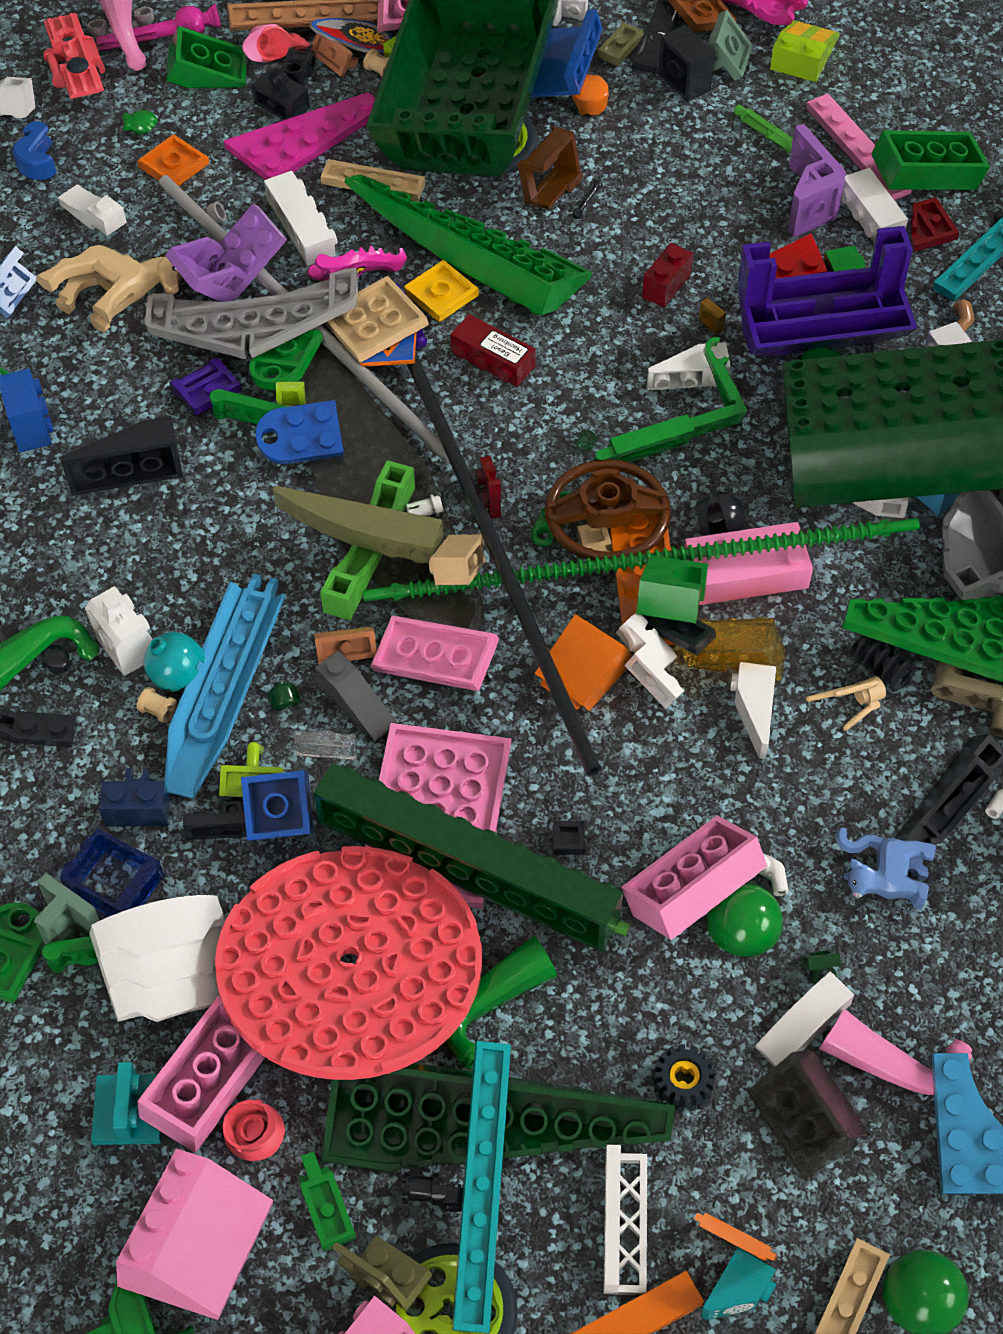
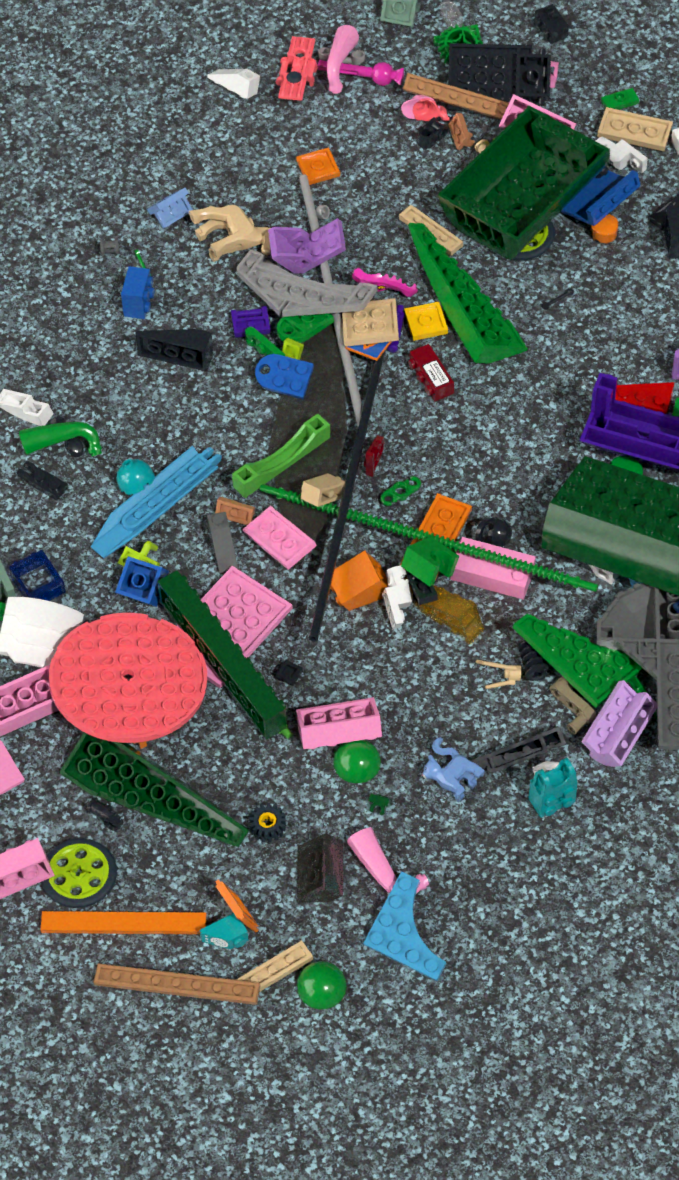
camera: 30 degrees right, 0 degrees up
(31, 150) = (235, 123): blue animal -> none
(93, 210) = (250, 179): white slope -> none
(119, 629) = (116, 444): white hinge -> none
(134, 801) = (71, 545): dark blue brick -> none
(139, 121) = (313, 130): green animal -> none
(156, 705) = (113, 497): tan bush -> none
(204, 61) = (376, 105): green slope -> none
(216, 826) = (103, 576): black hinge -> none
(253, 1130) = (34, 740): coral piece -> none
(280, 95) = (409, 148): black brick -> none
(283, 696) = (186, 524): dark green piece -> none
(299, 217) = (370, 236): white brick -> none
(300, 139) = (400, 183): dark pink wing -> none
(325, 744) = (190, 561): clear plate -> none
(325, 1204) = (47, 793): green hinge -> none
(352, 33) = (478, 122): shield -> none
(364, 525) = (283, 447): olive slope -> none
(386, 1271) = (57, 836): olive bracket -> none
(426, 507) = (327, 451): white pin -> none
(481, 1188) = (125, 818): teal plate -> none
(510, 978) = (214, 728): green animal -> none
(561, 150) = (550, 278): reddish brown piece -> none
(586, 439) = (452, 452): clear green piece -> none
(594, 538) = (415, 514): tan plate -> none
(607, 502) = (435, 502): reddish brown piece -> none
(612, 1222) = (184, 870): white fence -> none
(620, 44) = (650, 200): olive plate -> none
(667, 275) = (569, 370): dark red brick -> none
(681, 429) = (504, 470): green hinge -> none
(686, 369) = (546, 436): white slope -> none
(712, 316) = (579, 409): pearl gold tile -> none
(754, 701) = (445, 644): white slope -> none
(776, 874) = (389, 742): white arm -> none
(806, 1019) = (352, 822): white slope -> none

